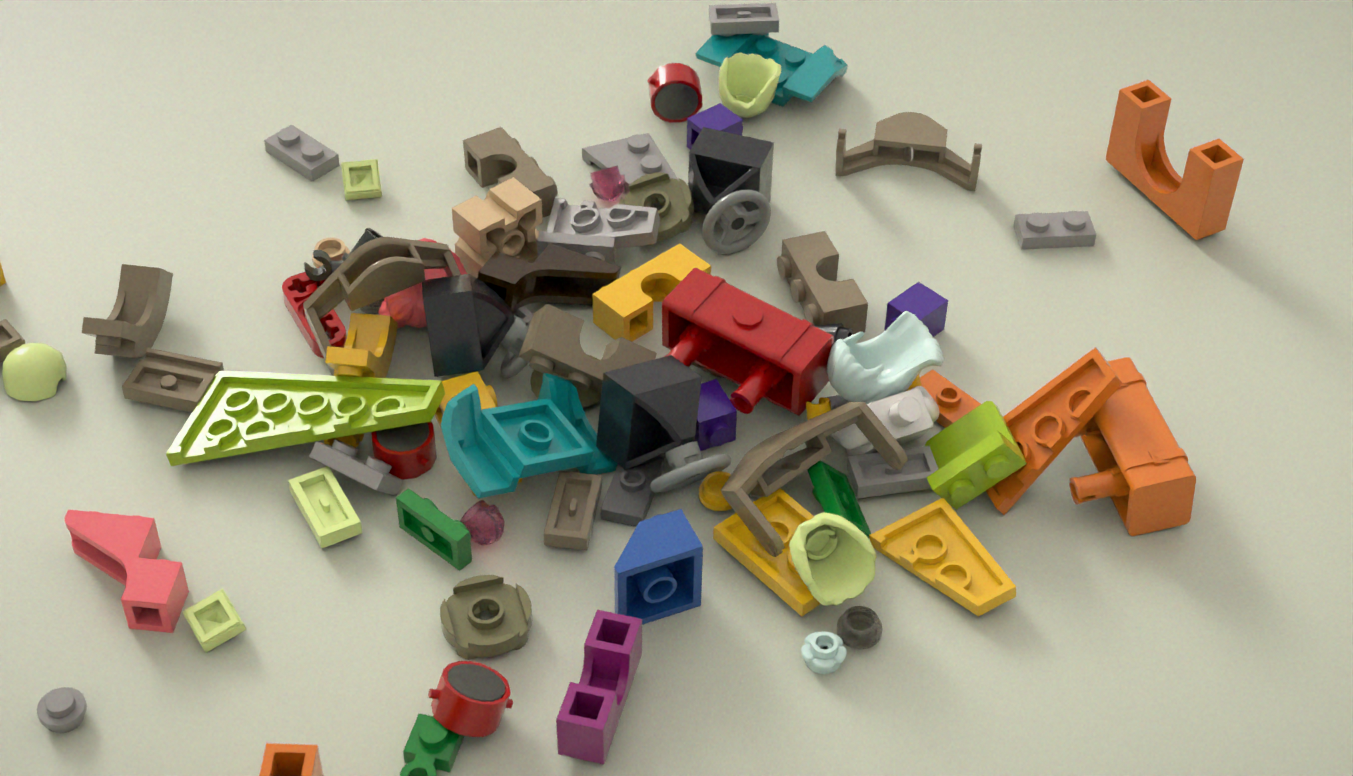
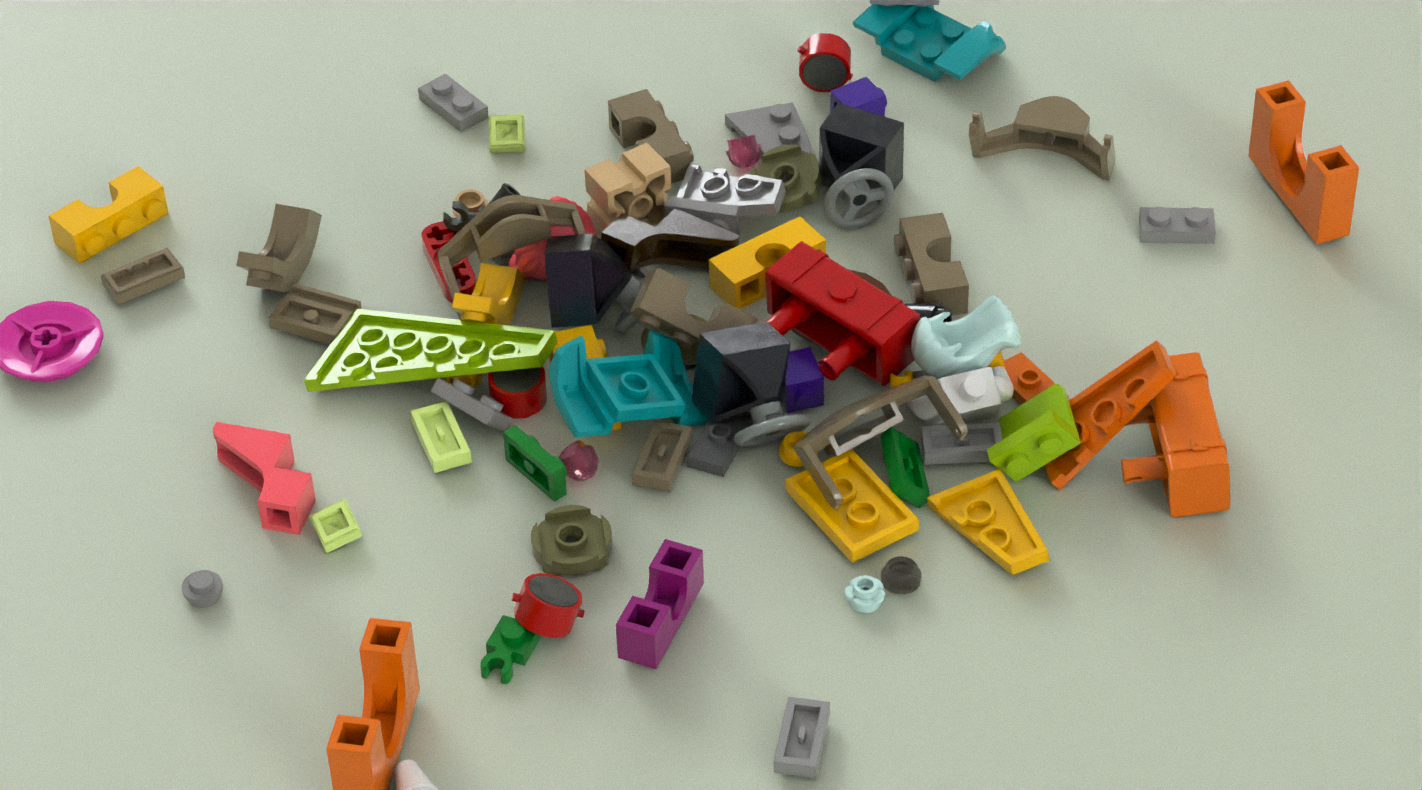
camera: 10 degrees right, 0 degrees up
(33, 372) = (190, 298): yellowish green hair -> none
(659, 569) = (726, 511): blue slope -> none
(748, 83) = (898, 57): yellowish green hair -> none
(833, 558) = (881, 512): yellowish green hair -> none
(922, 302) = (1022, 295): dark purple brick -> none

